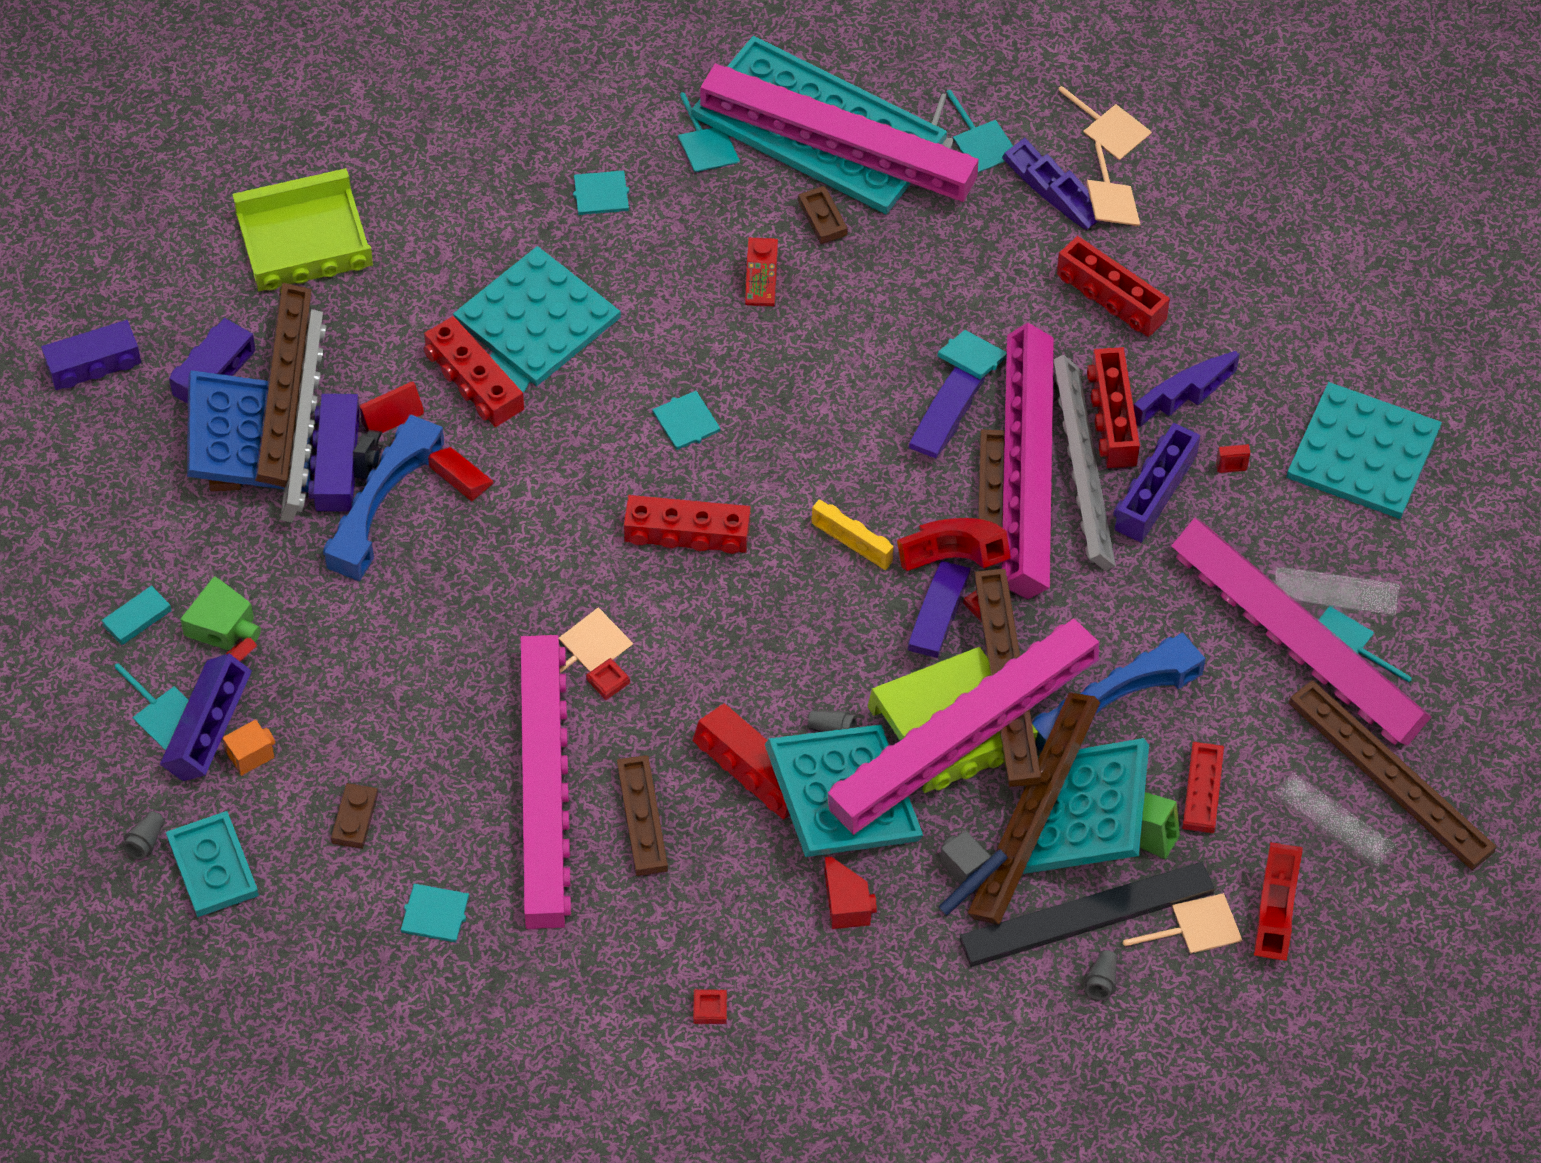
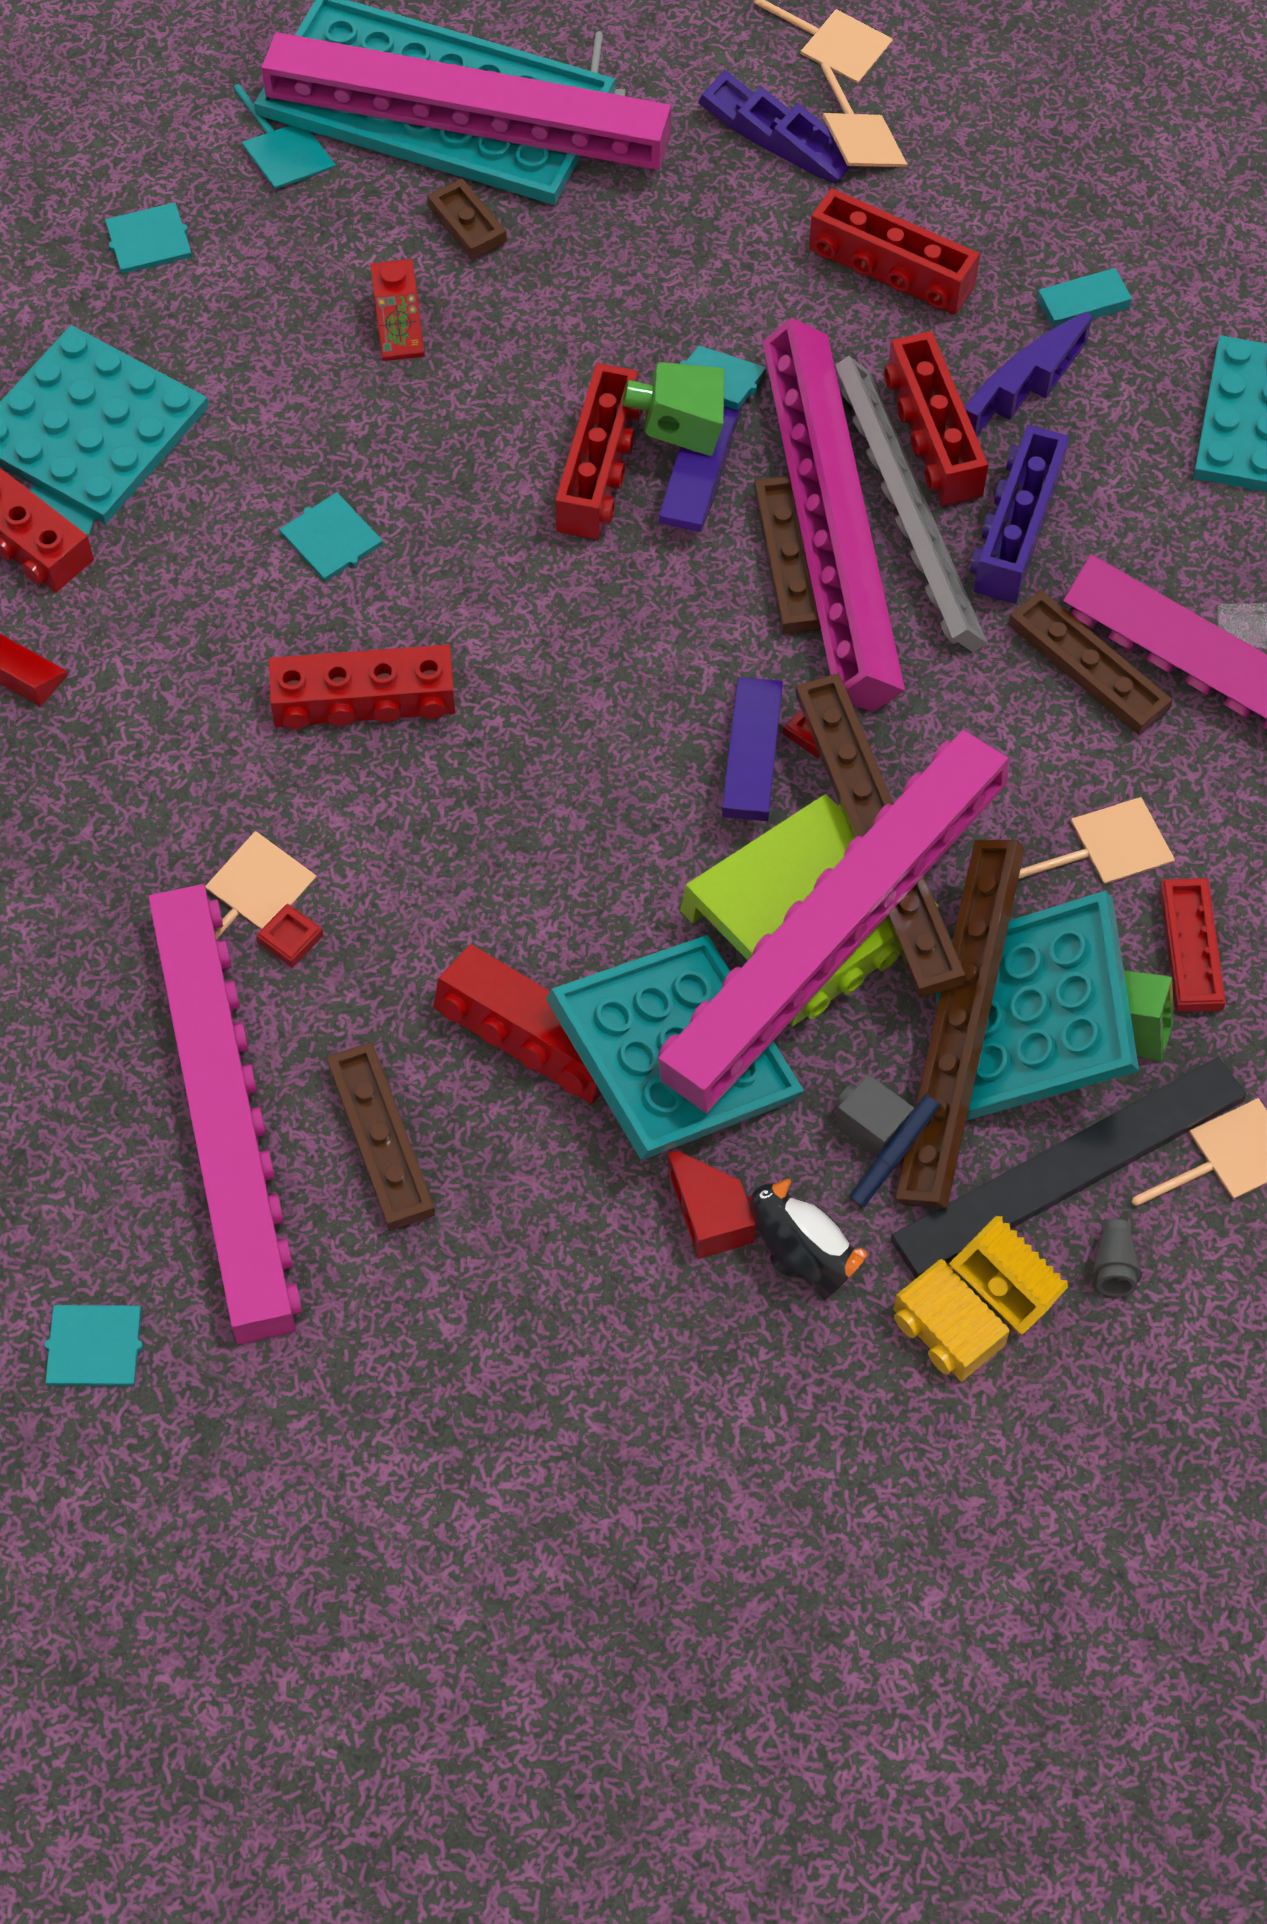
camera: 10 degrees left, 5 degrees up
(710, 1007) = (541, 1417): red tile -> none
(831, 720) = (632, 942): dark grey cone -> none
(852, 534) = (604, 660): yellow plate -> none
(877, 392) = (596, 455): none -> red brick
(900, 925) = (803, 1238): none -> black animal
(939, 370) = (681, 404): none -> bright green torso
(955, 537) = (757, 640): red arch -> none
(981, 142) = (667, 83): teal piece -> none
(984, 993) = (949, 1321): none -> yellow brick
(1028, 971) = (1009, 1275): none -> yellow brick
(1170, 711) = (1117, 841): none -> light nougat piece
(1171, 663) = (1103, 770): blue arch -> none
(1181, 590) = (1090, 662): none -> reddish brown plate
(1233, 458) = (1116, 462): red tile -> none
(1243, 339) = (1094, 294): none -> teal tile

